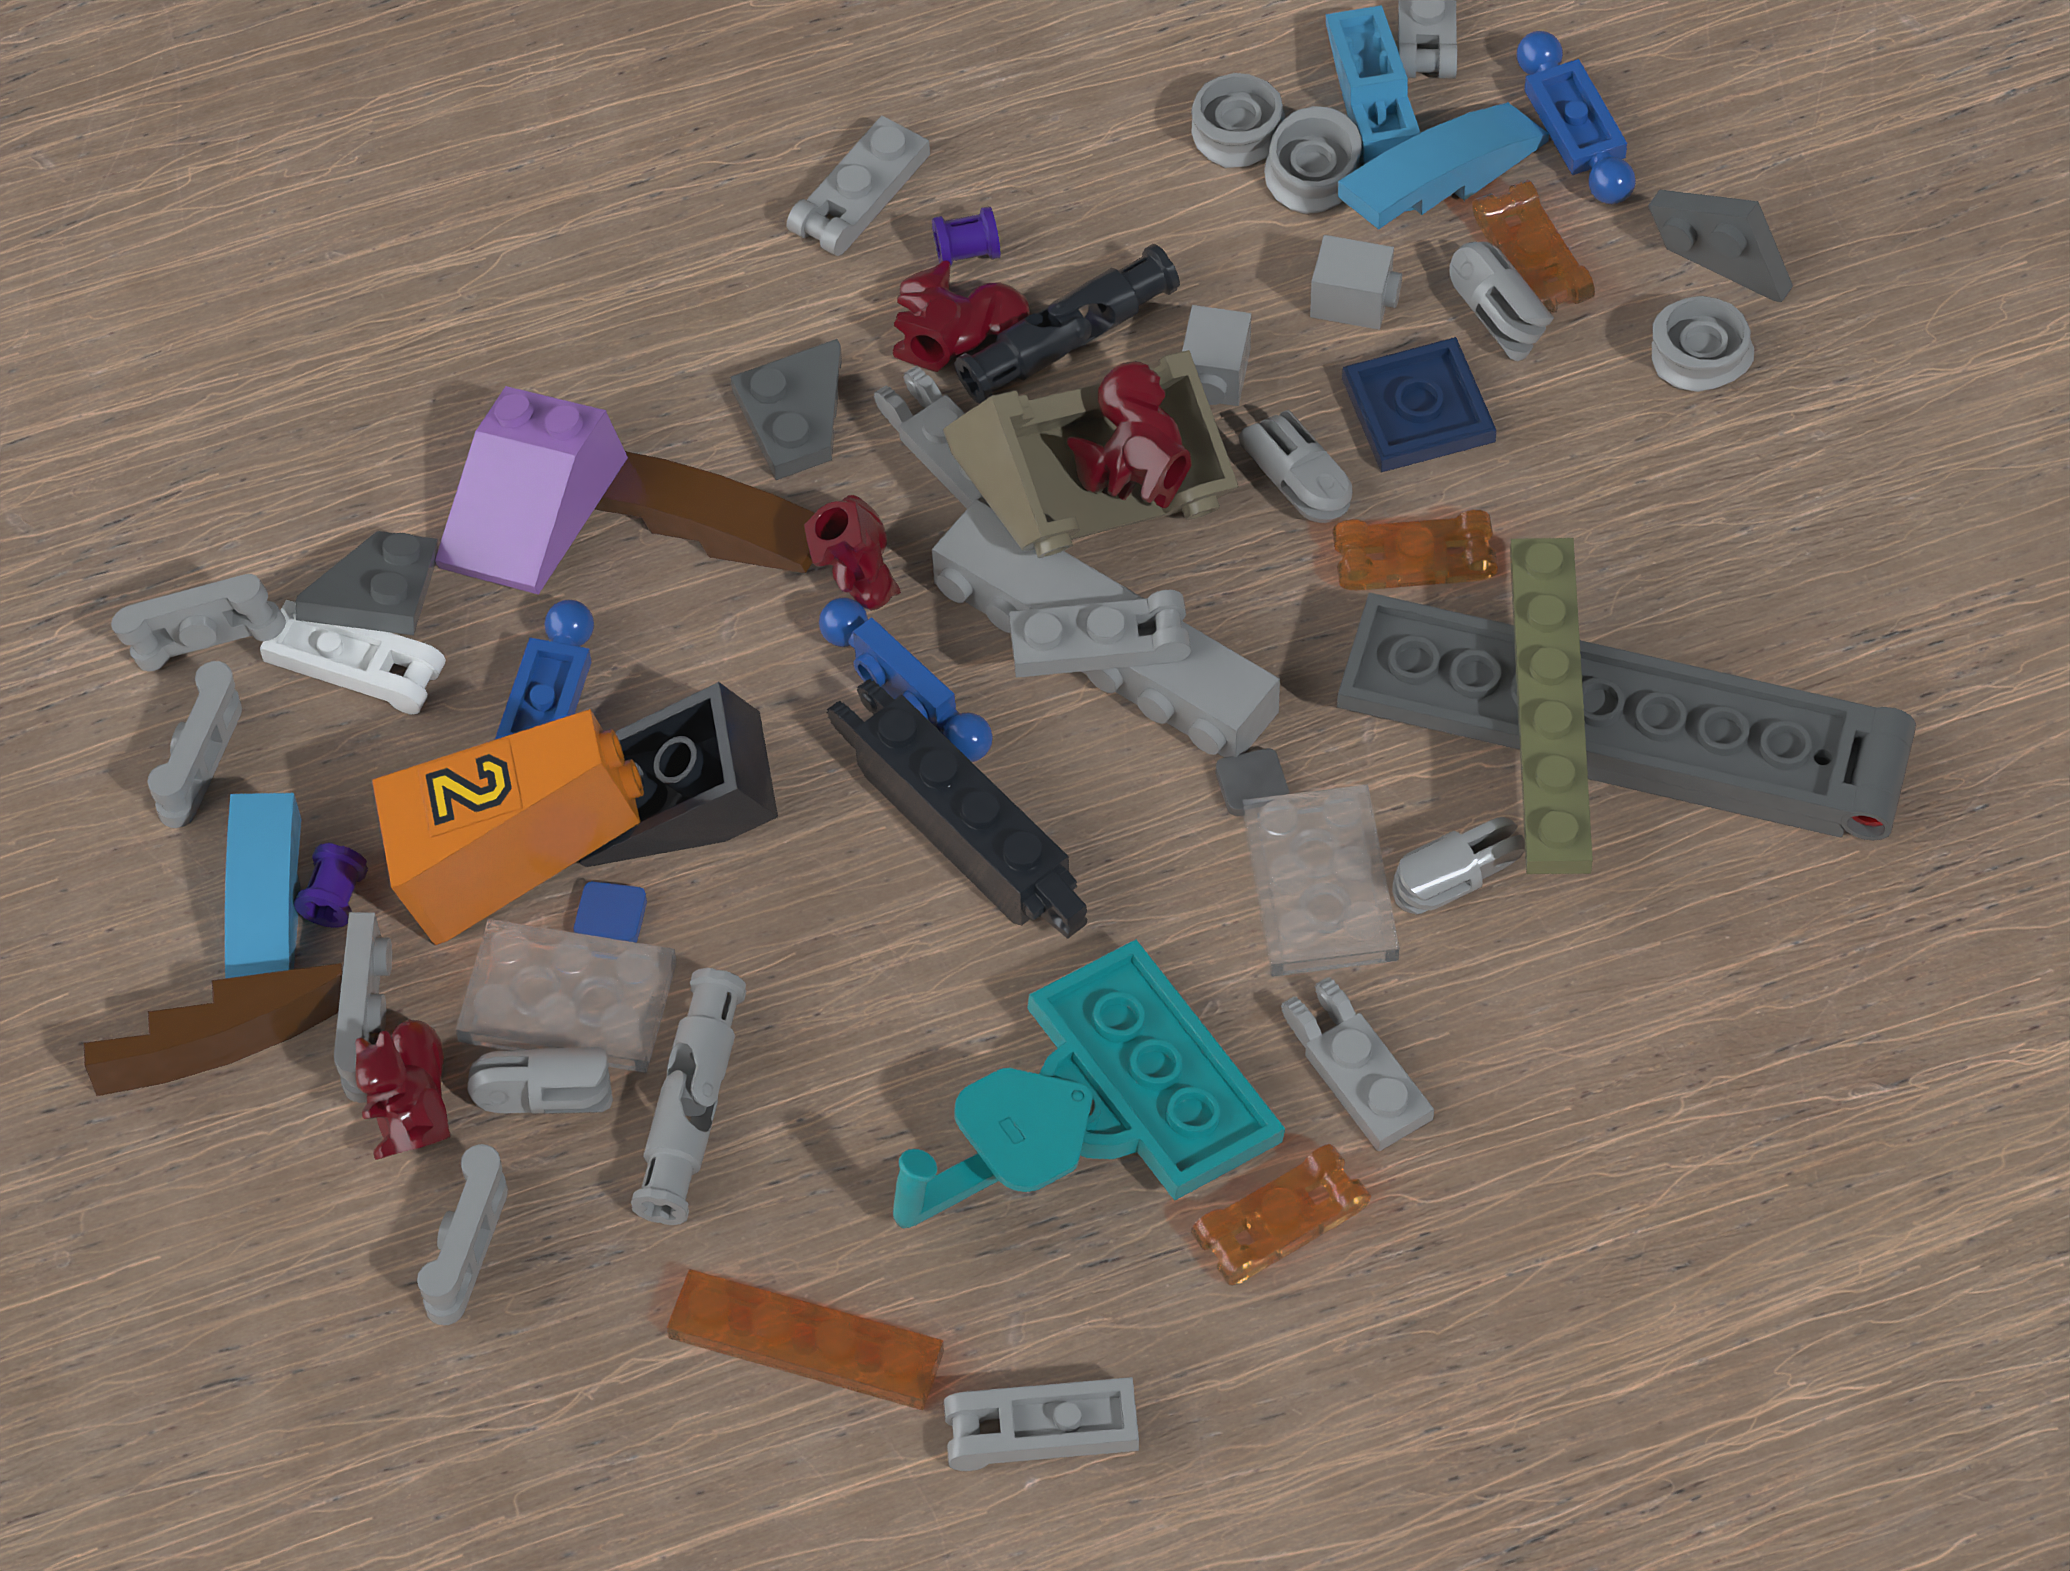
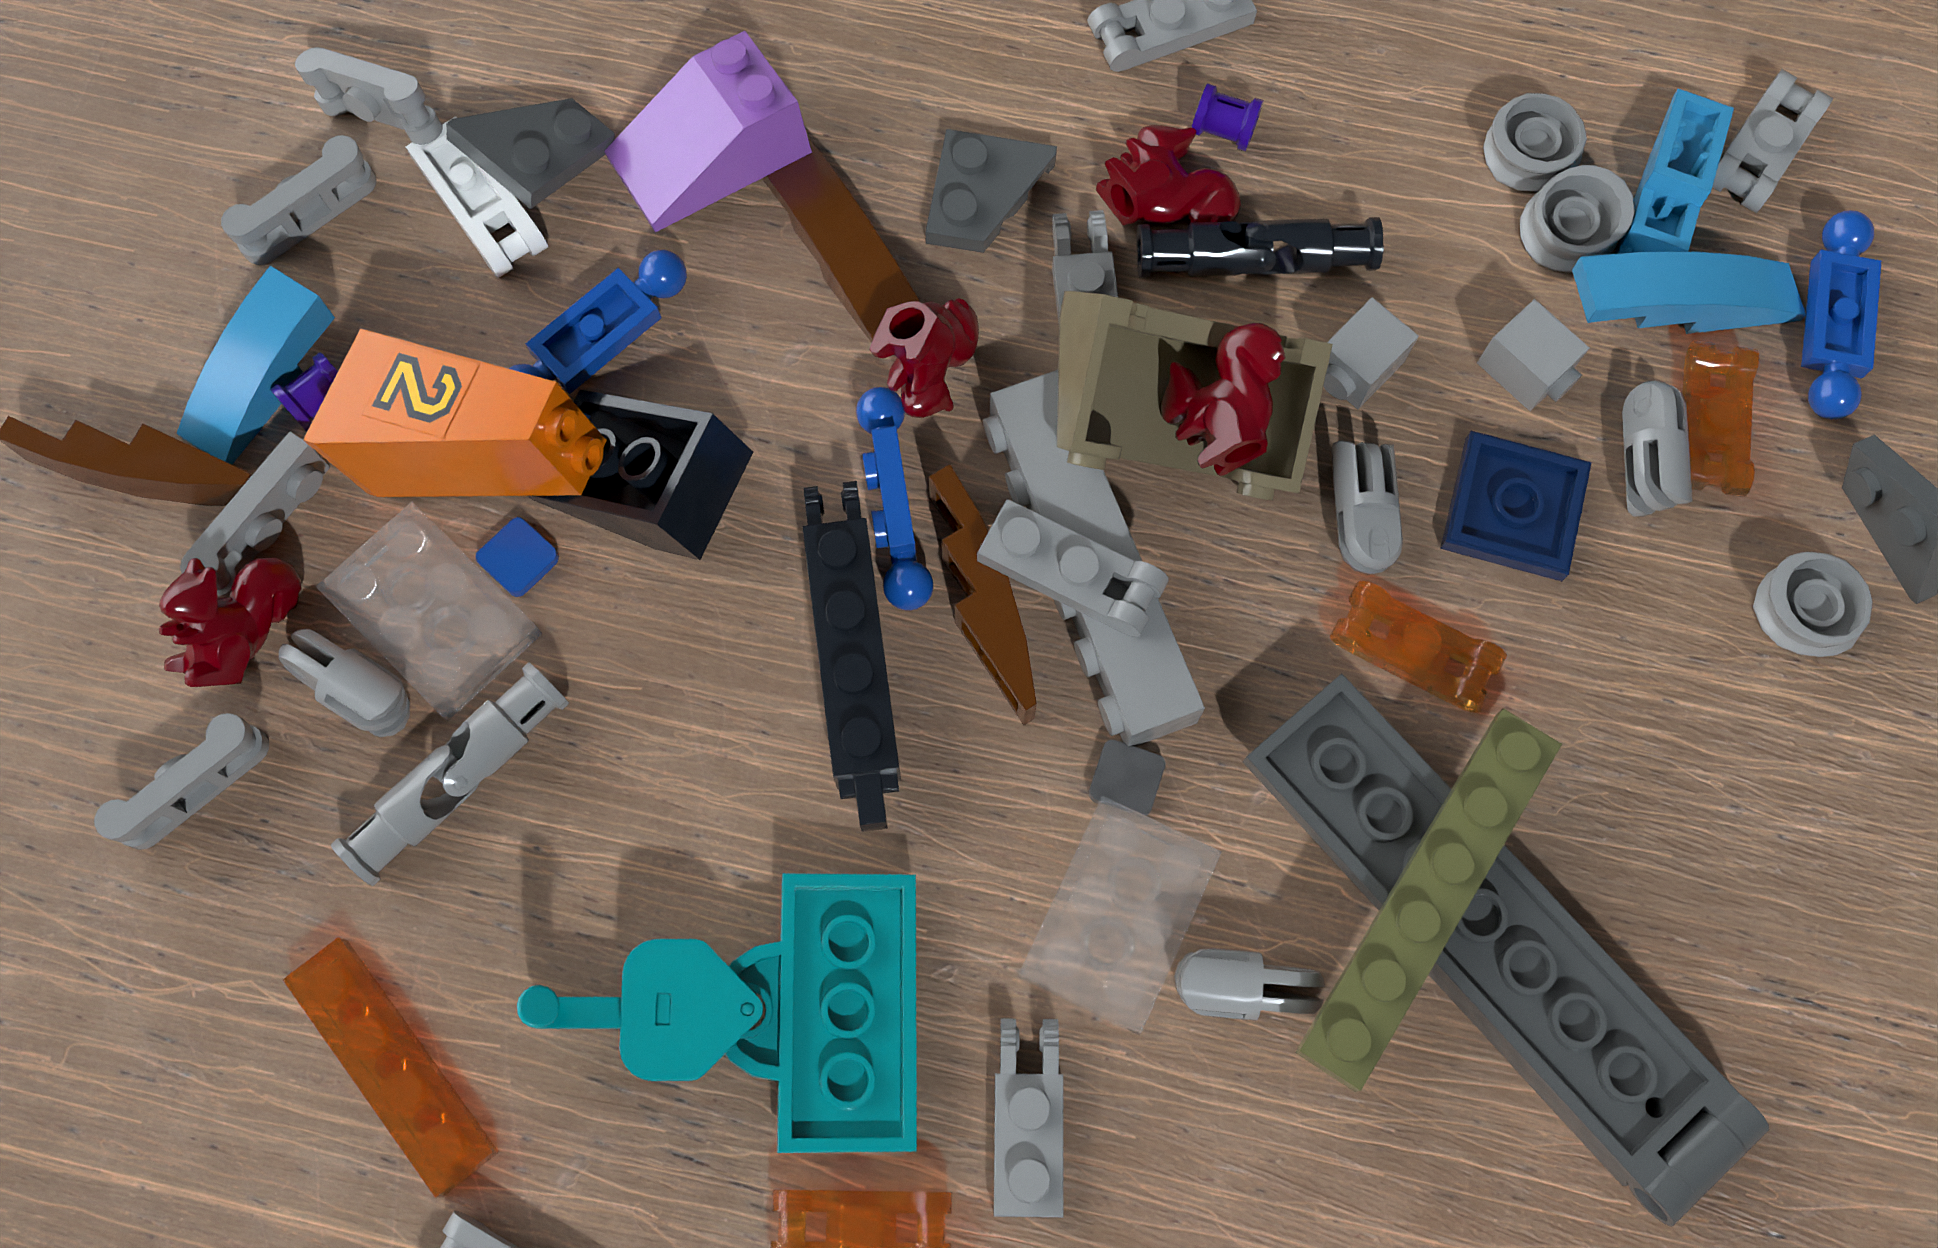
camera: 30 degrees right, 15 degrees up
(1053, 718) = (989, 612): none -> reddish brown slope

